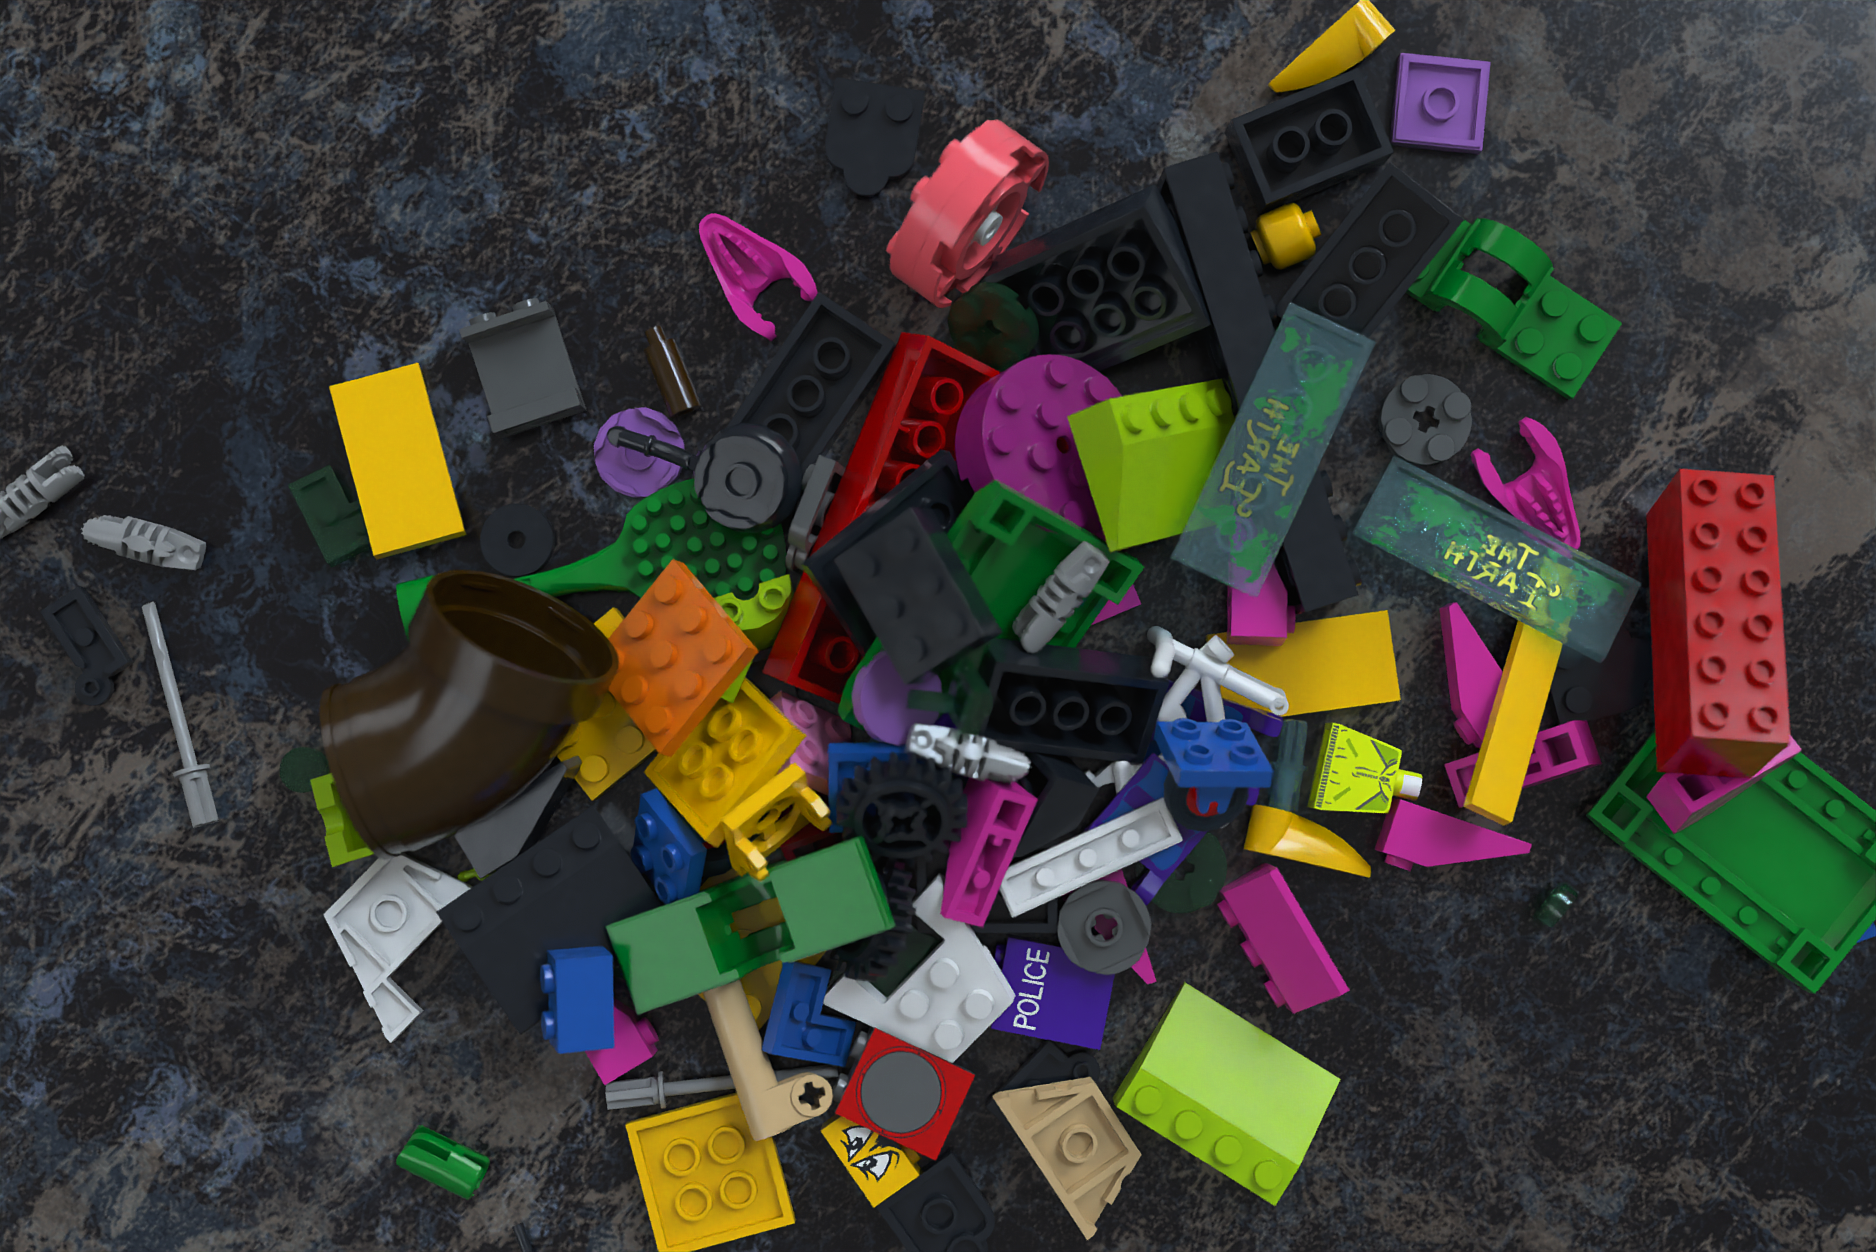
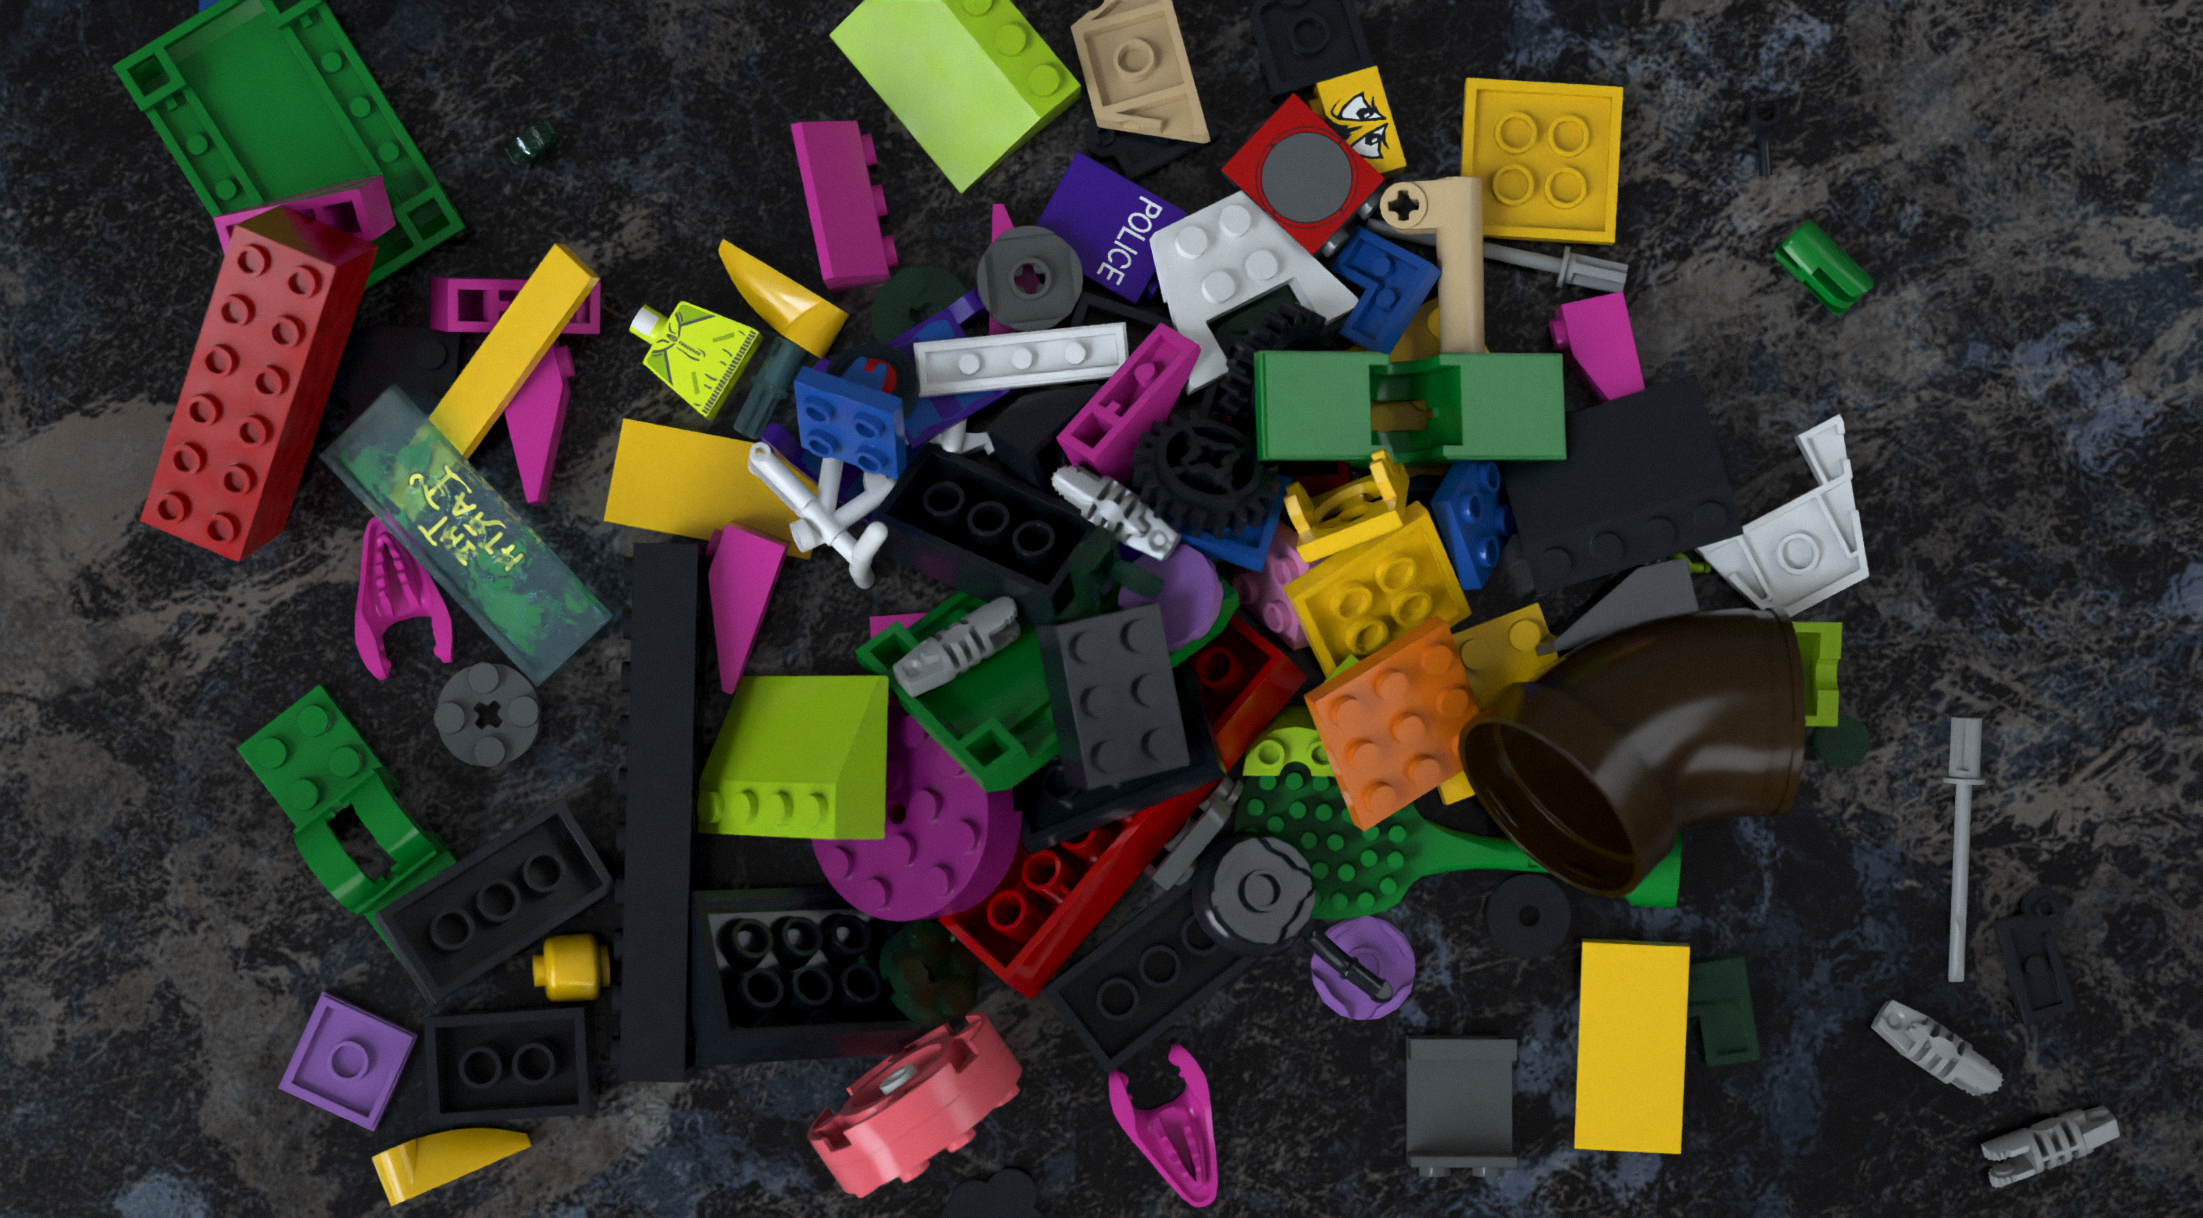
camera: 160 degrees left, 0 degrees up
(579, 999) = (1620, 389): blue brick -> none
(670, 373) = (1300, 1043): dark brown cylinder -> none
(1272, 450) = (672, 731): clear light blue tile -> none
(1434, 839) = (638, 255): dark pink slope -> none

